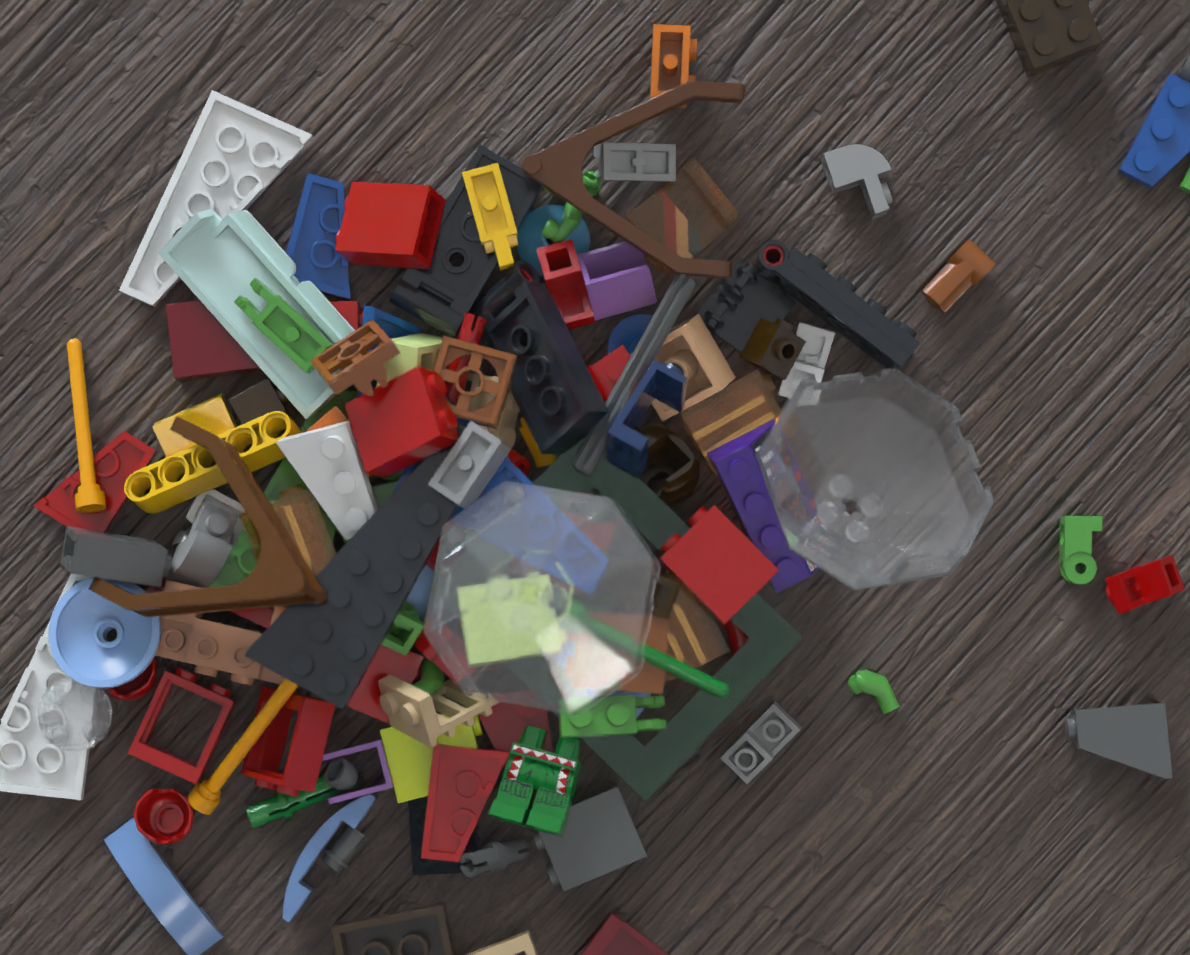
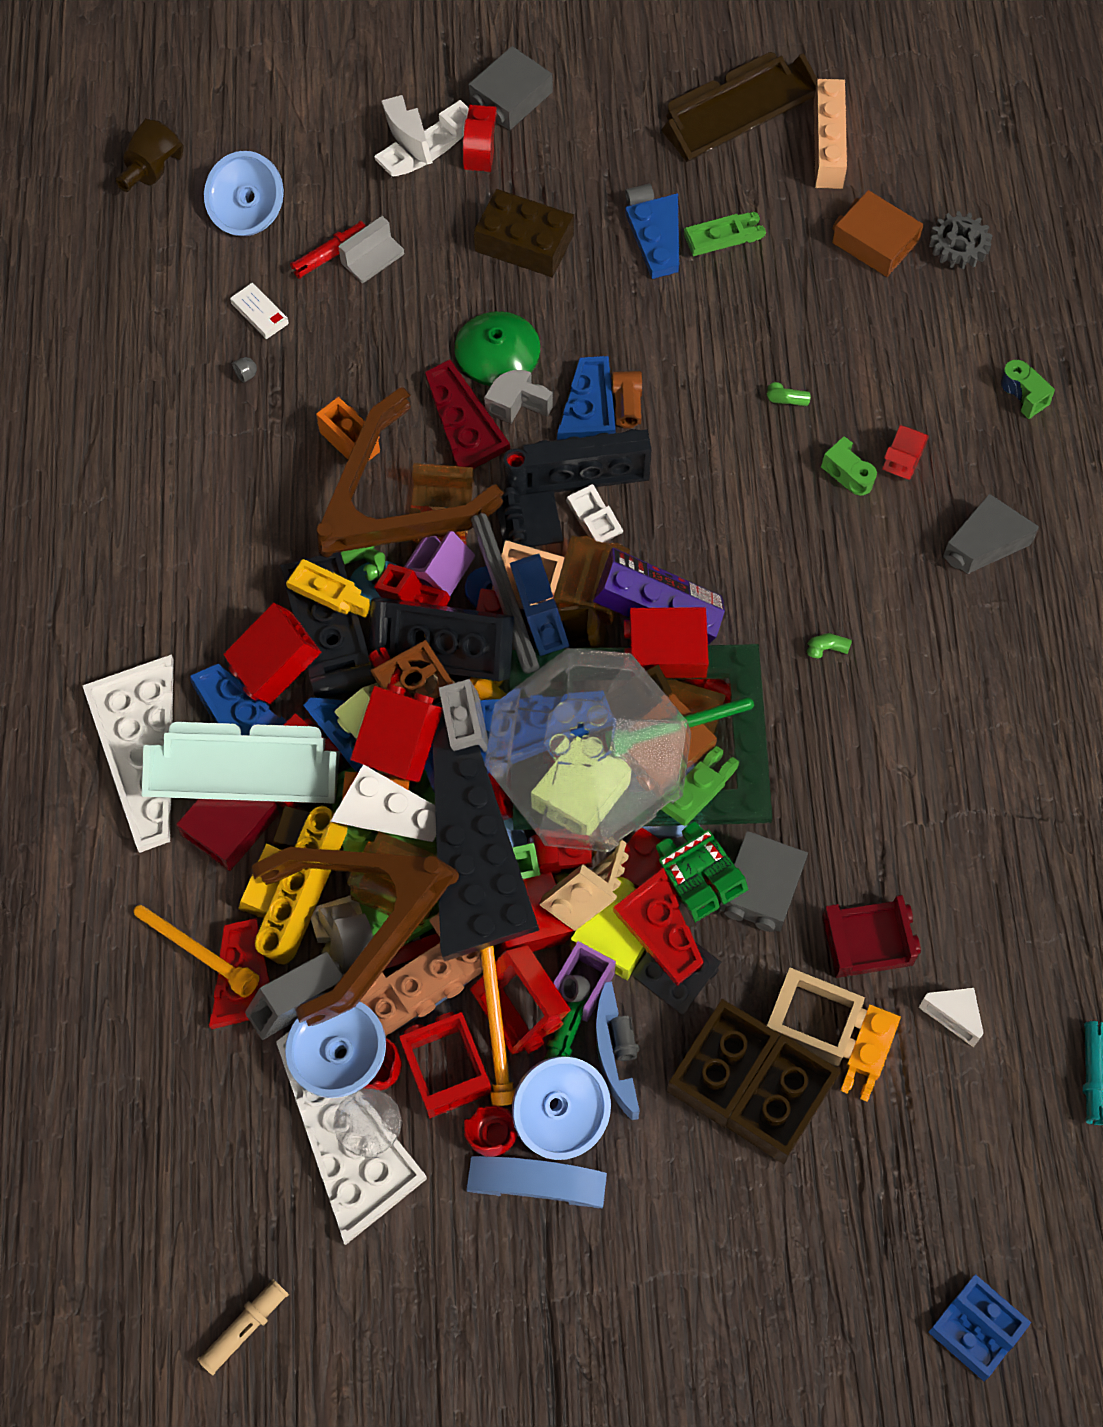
camera: 45 degrees left, 20 degrees down
(229, 871) = (580, 1112): none -> light blue dish
(285, 327) = (267, 759): bright green hinge -> none
(355, 361) = (330, 726): dark orange piece -> none
(494, 856) = (720, 944): dark grey pin -> none
(636, 162) = (383, 492): light grey hinge -> none
(761, 742) = (798, 734): light grey slope -> none
(773, 347) = (566, 518): dark brown brick -> none
(788, 158) = (466, 423): none -> dark red wing
(894, 456) = (702, 518): clear windscreen -> none
(895, 128) = (486, 357): none -> green dish
(921, 246) = (590, 401): none -> blue wing
(1102, 421) = (778, 394): none -> bright green arm

